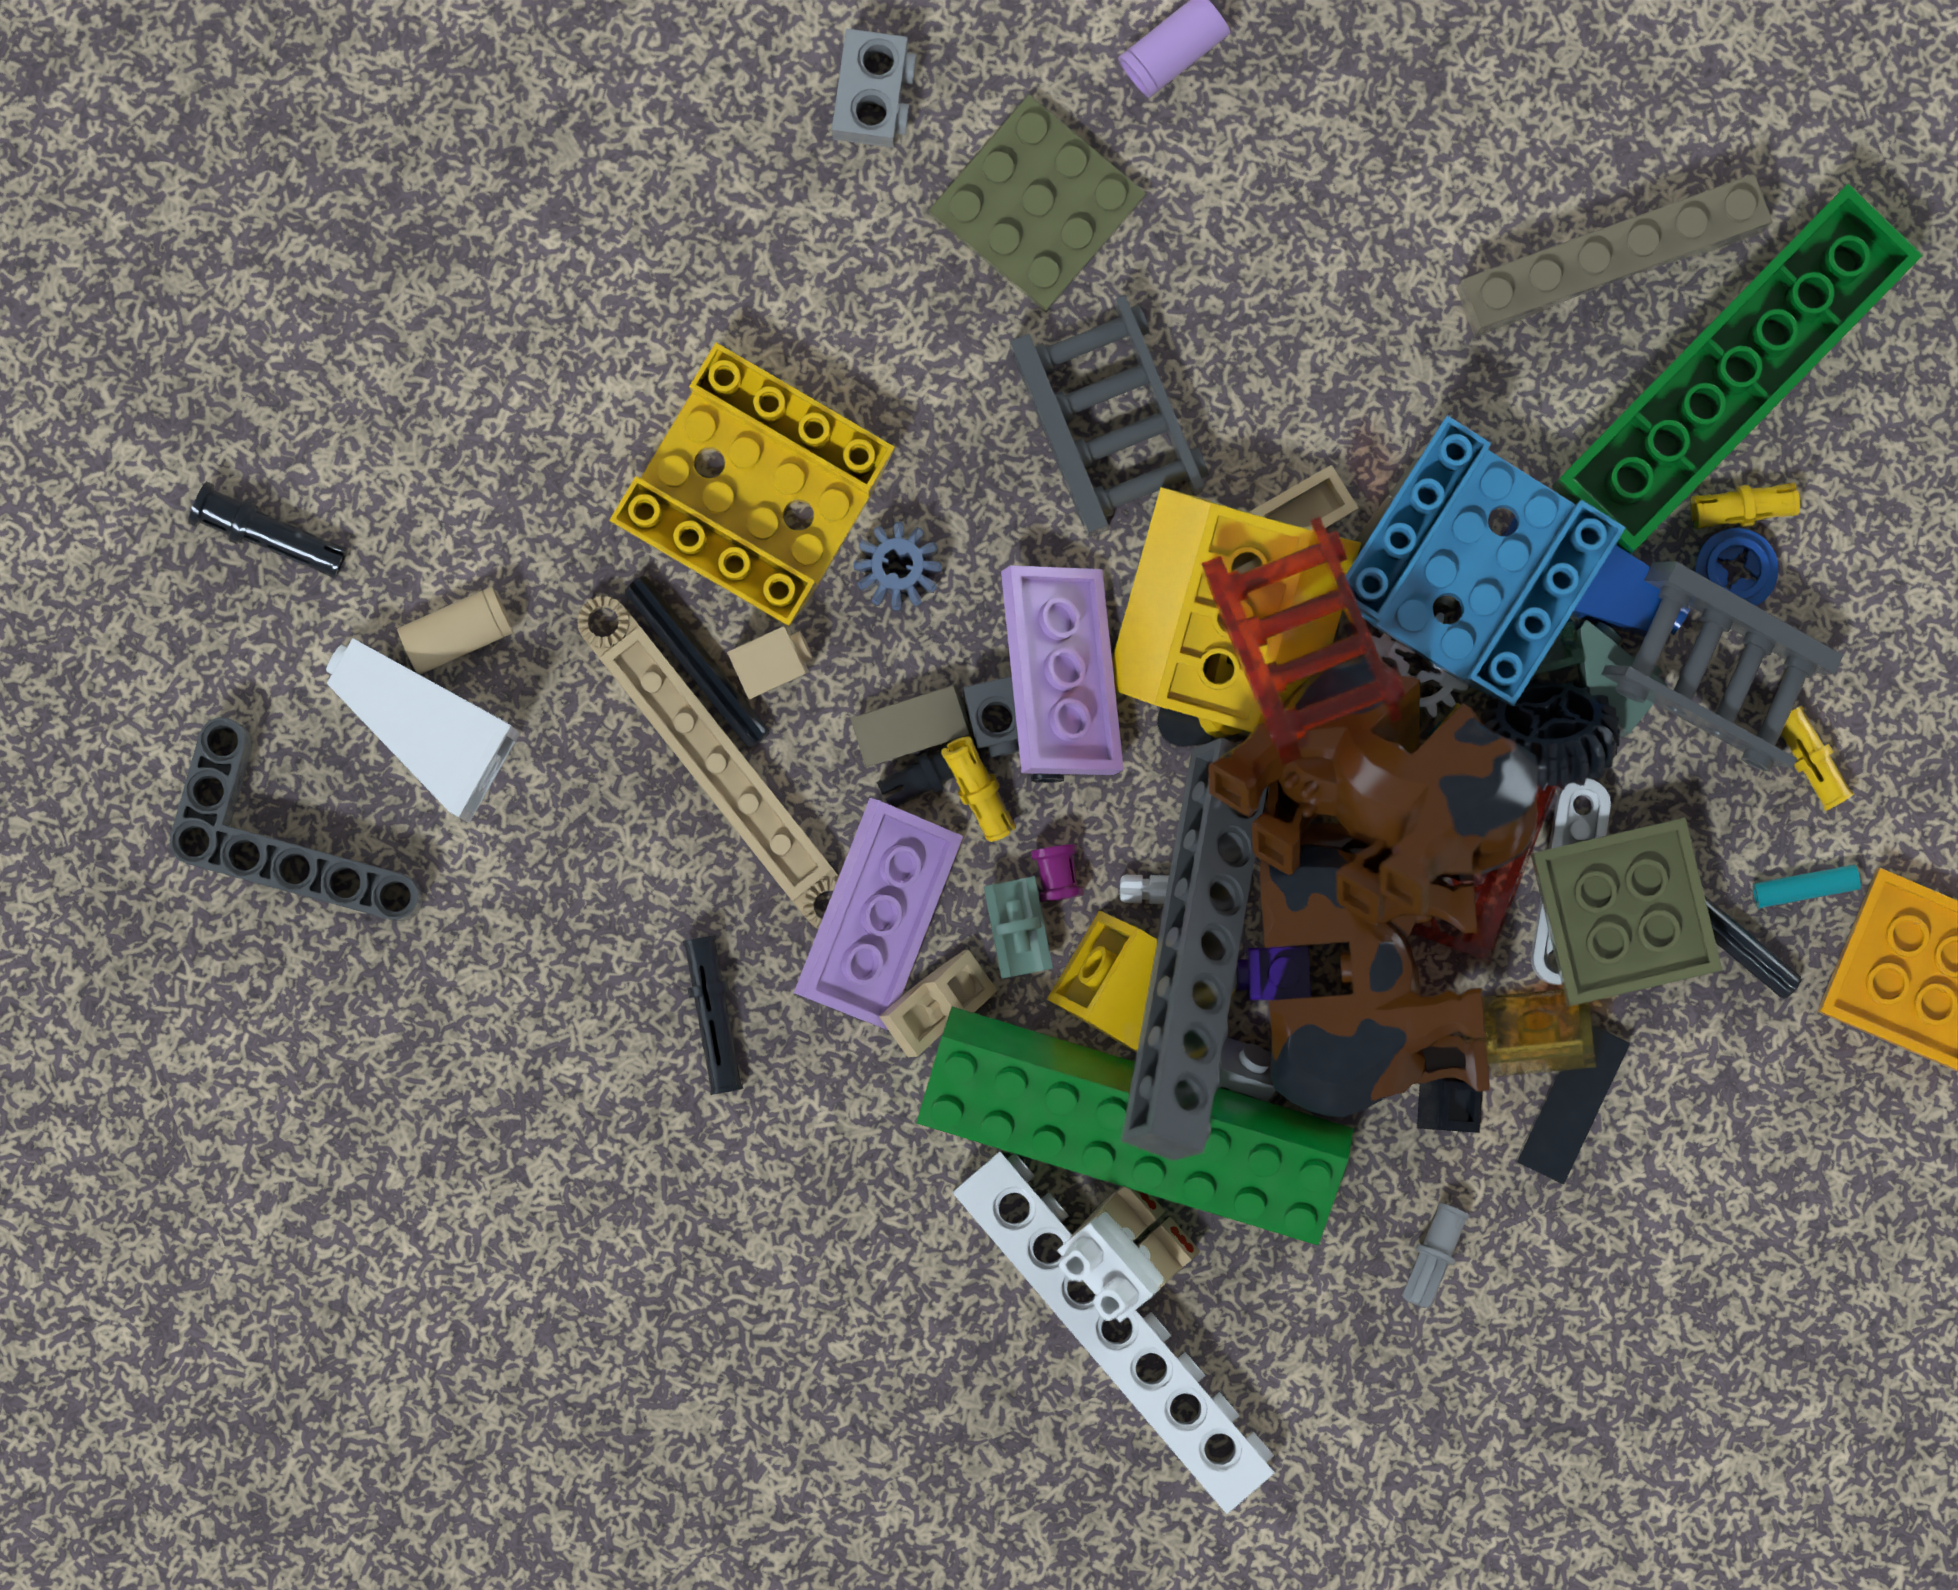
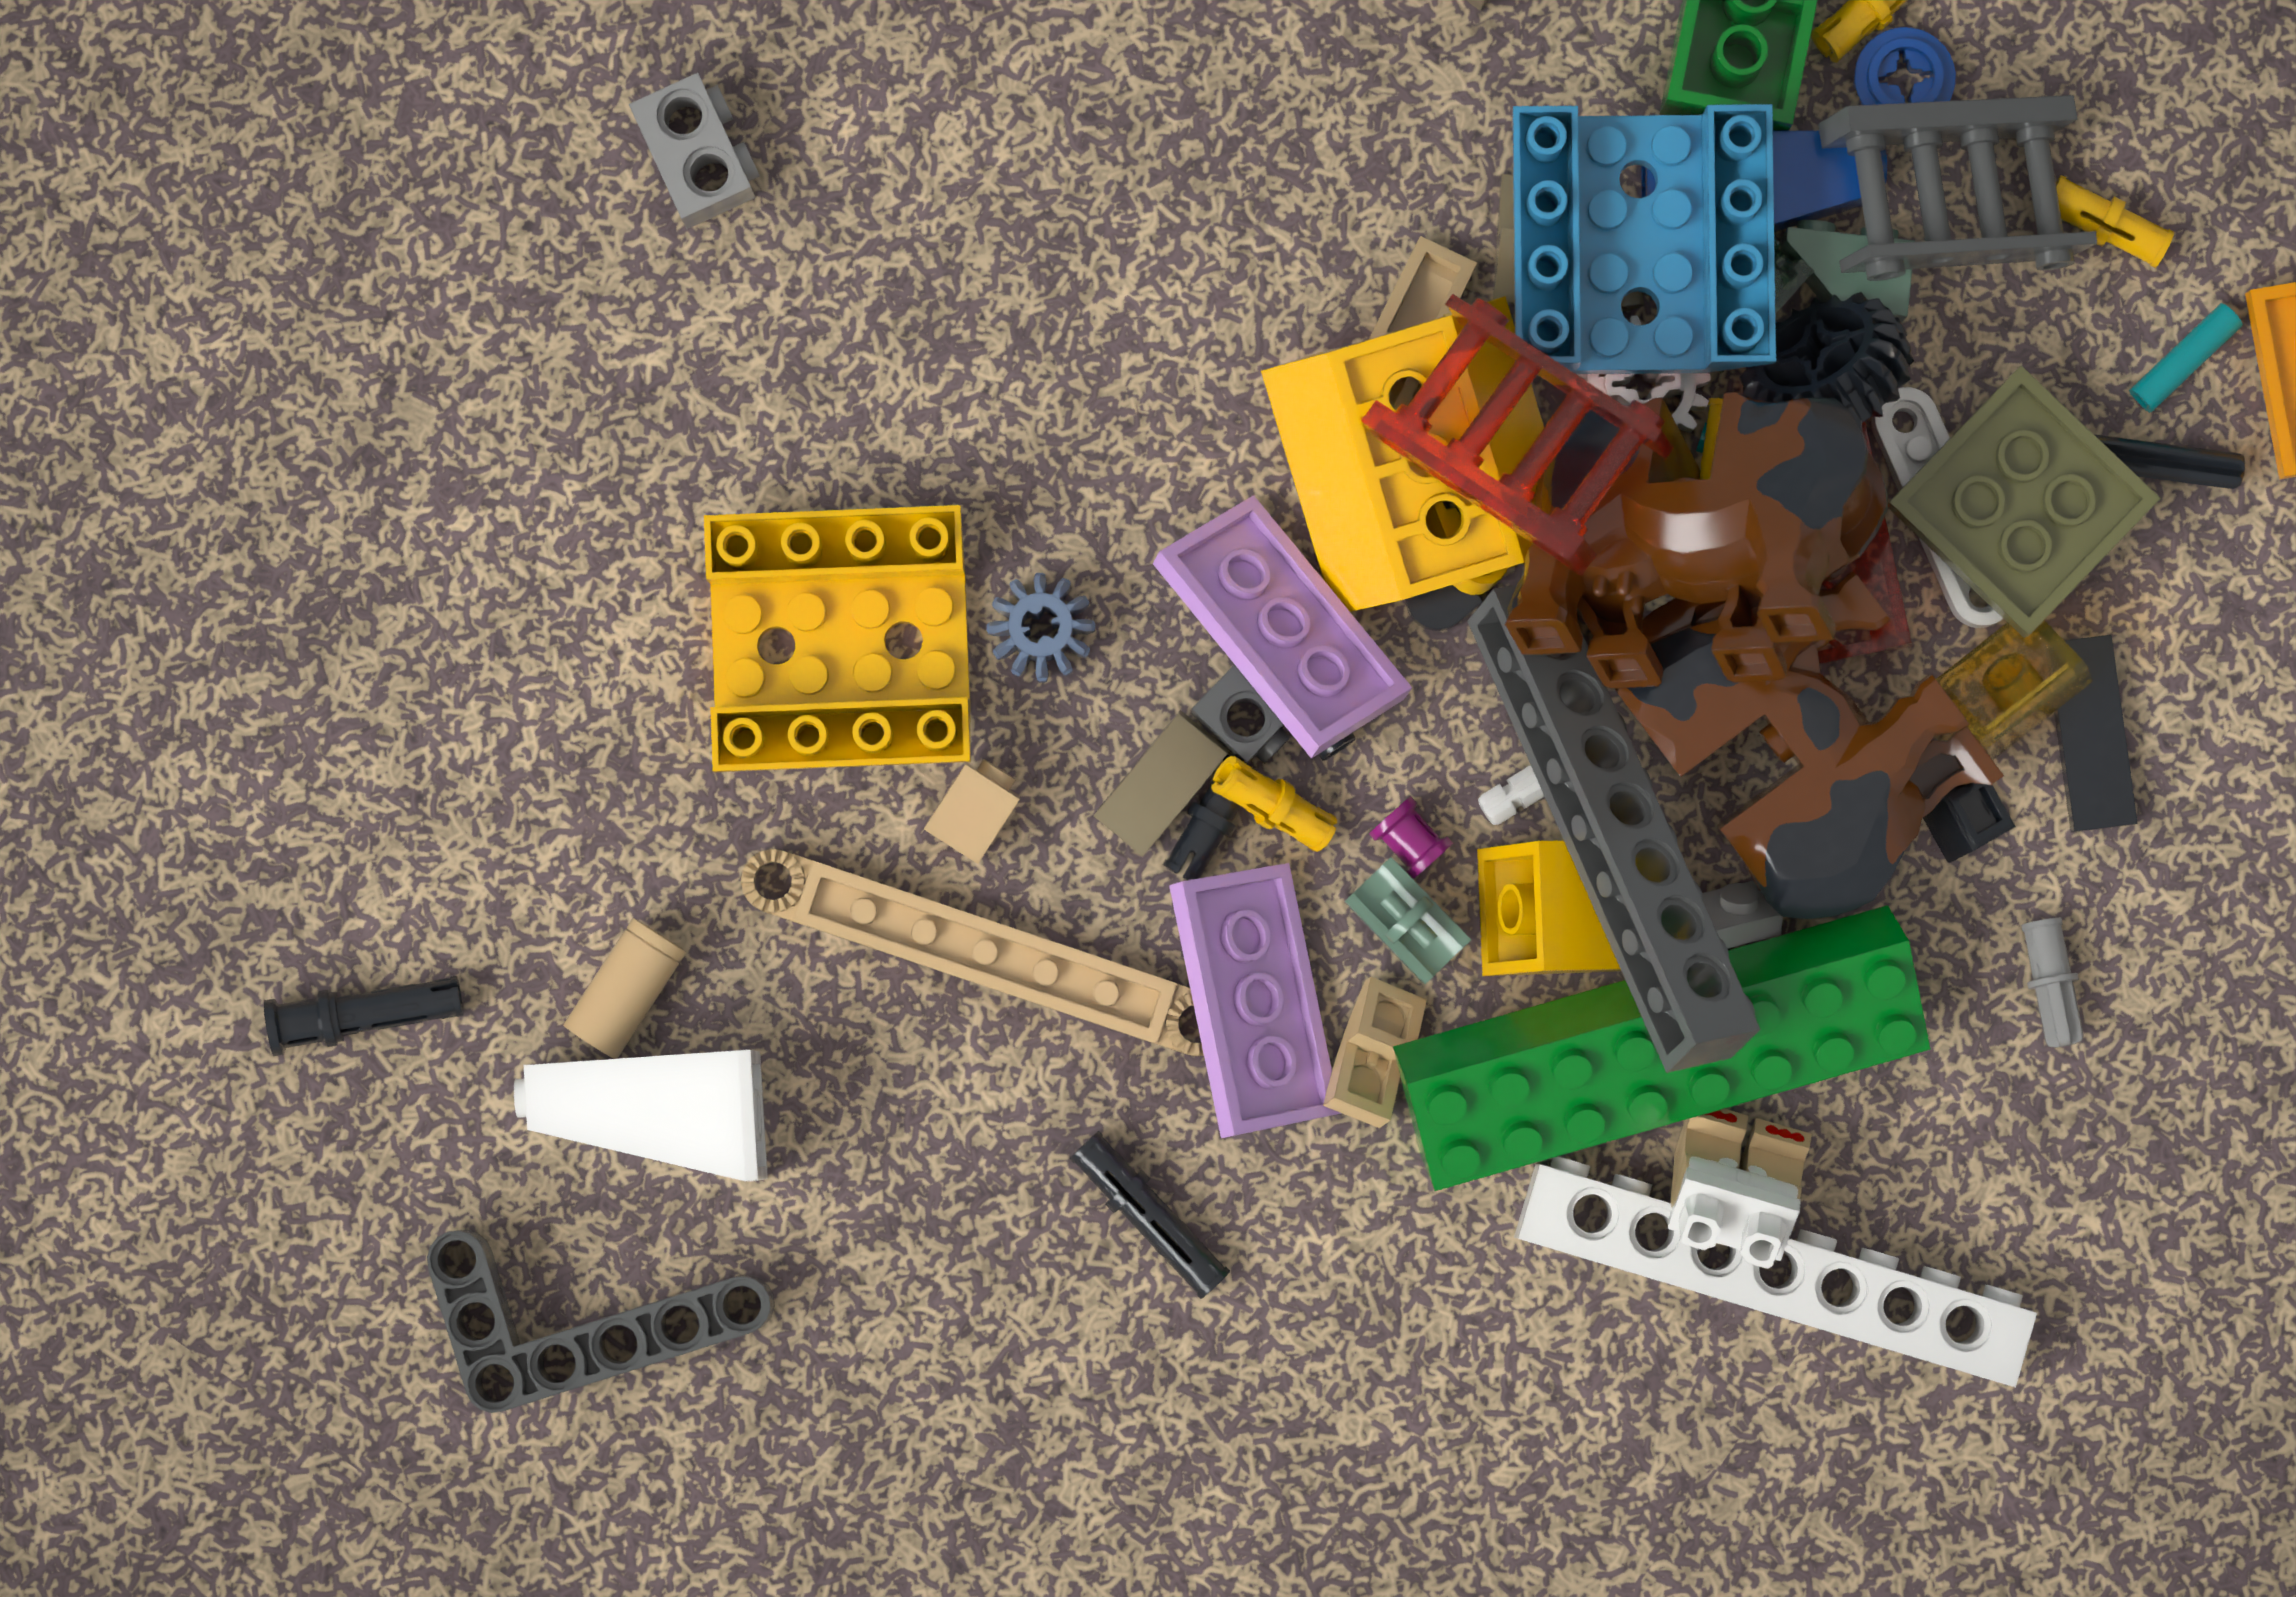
camera: 30 degrees left, 0 degrees up
(697, 661) = (896, 859): black axle -> none
(1037, 203) = (941, 160): olive plate -> none
(1057, 409) = (1153, 394): dark grey fence -> none
(1275, 973) = (1702, 797): dark purple bracket -> none

